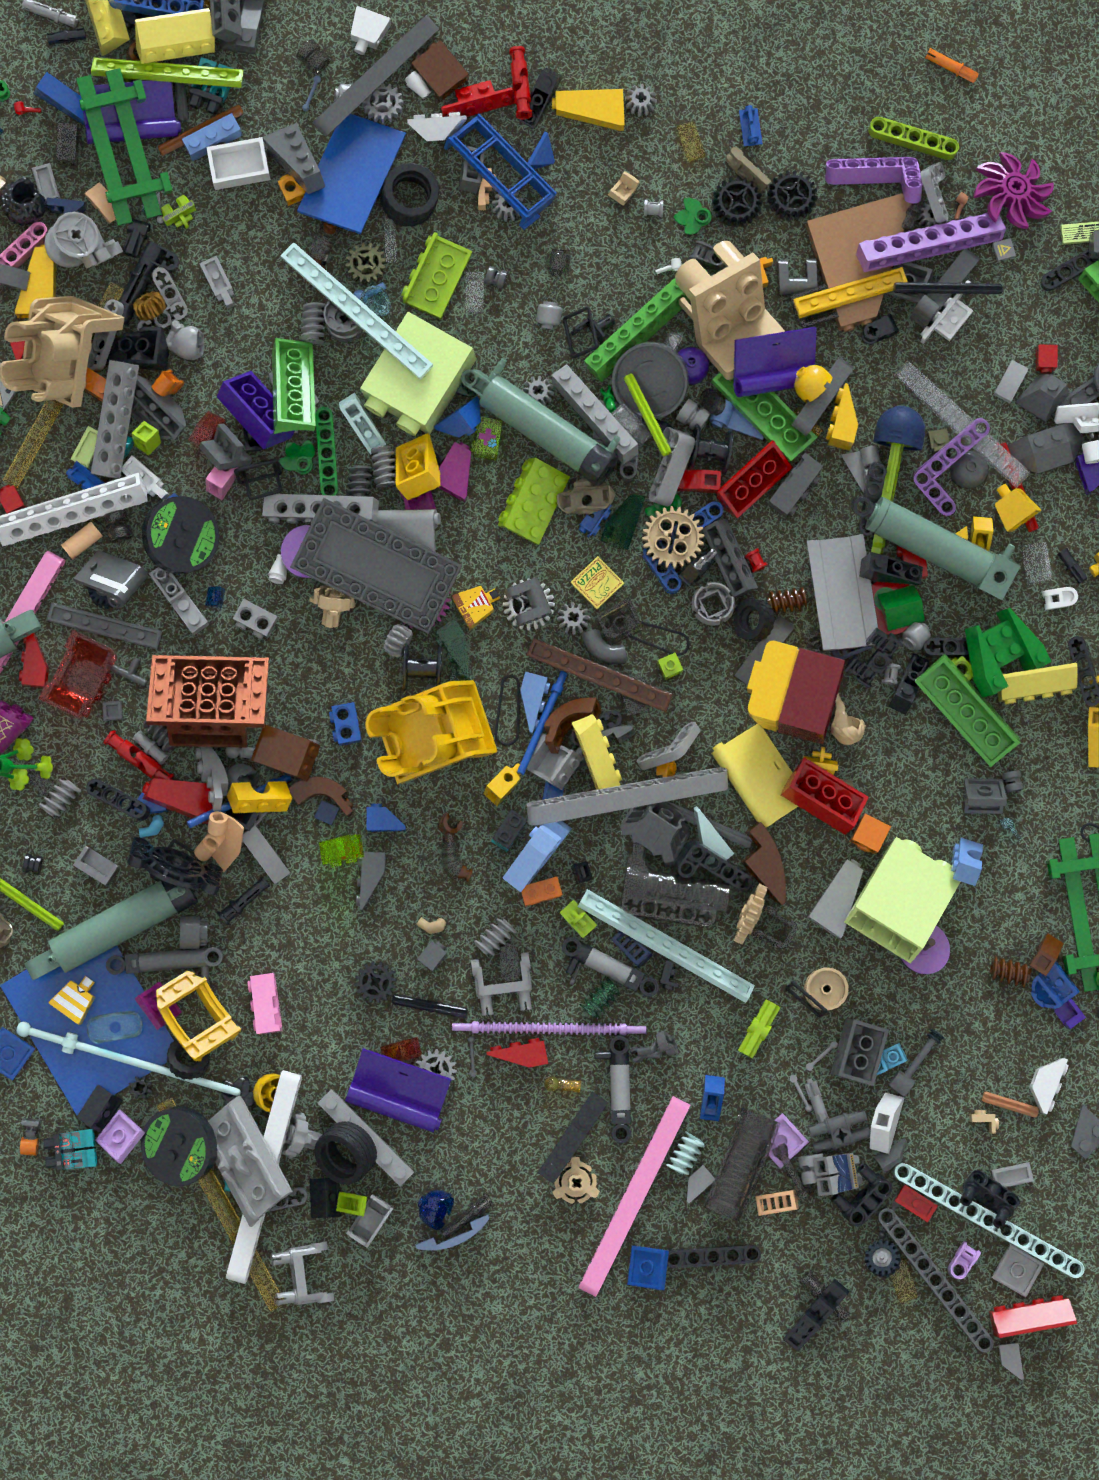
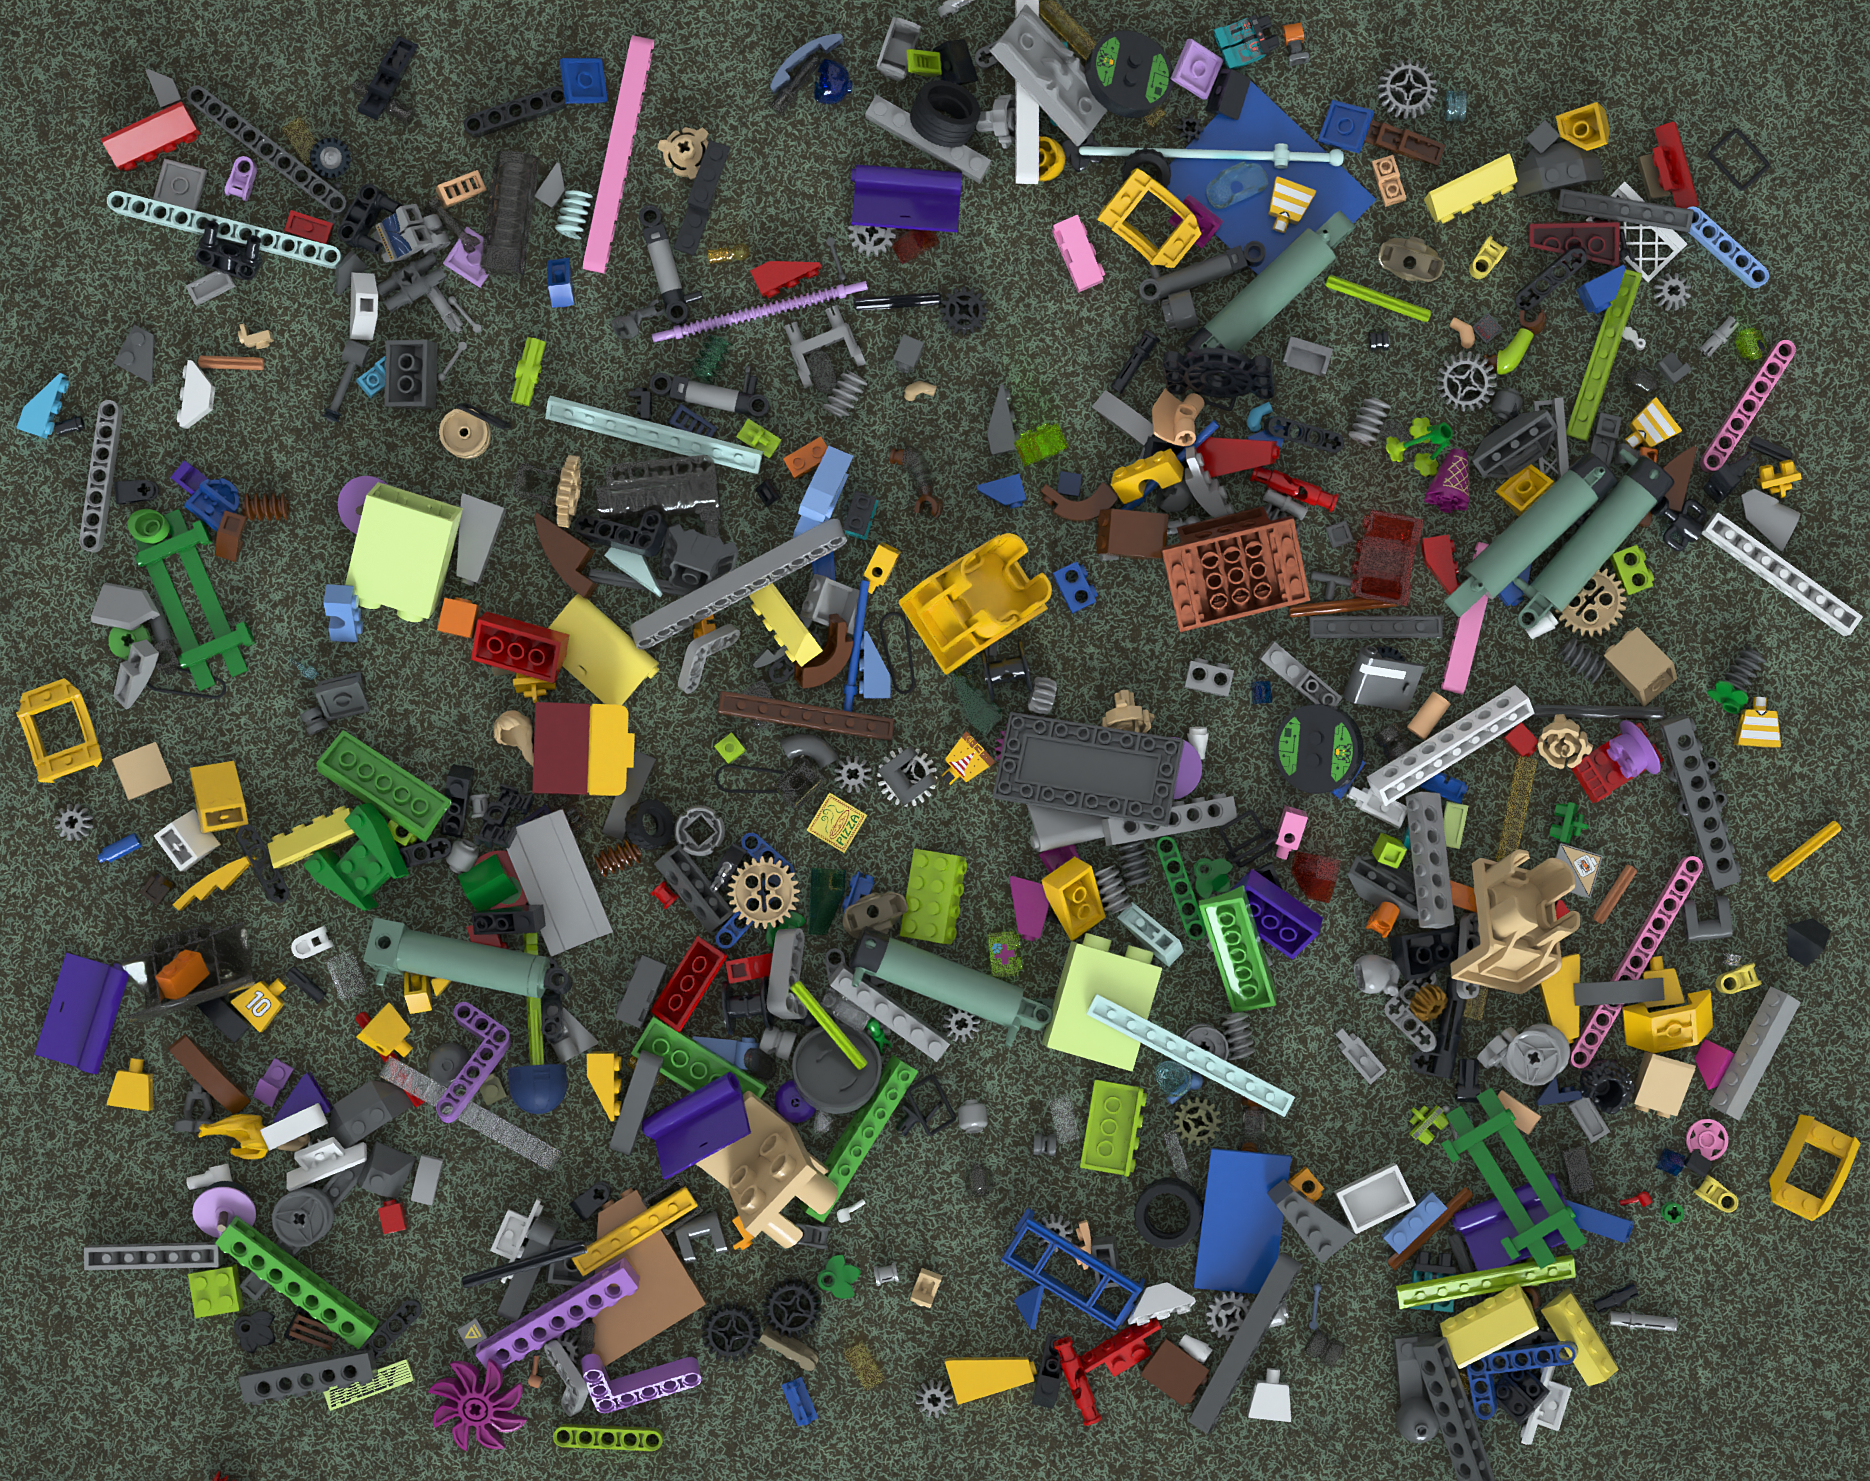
camera: 175 degrees right, 5 degrees up
(134, 651) = (1336, 607): none -> dark orange axle
(225, 450) = (1295, 856): dark grey bracket -> none
(462, 420) = (1037, 966): blue slope -> none
(811, 381) = (652, 1111): yellow cylinder -> none

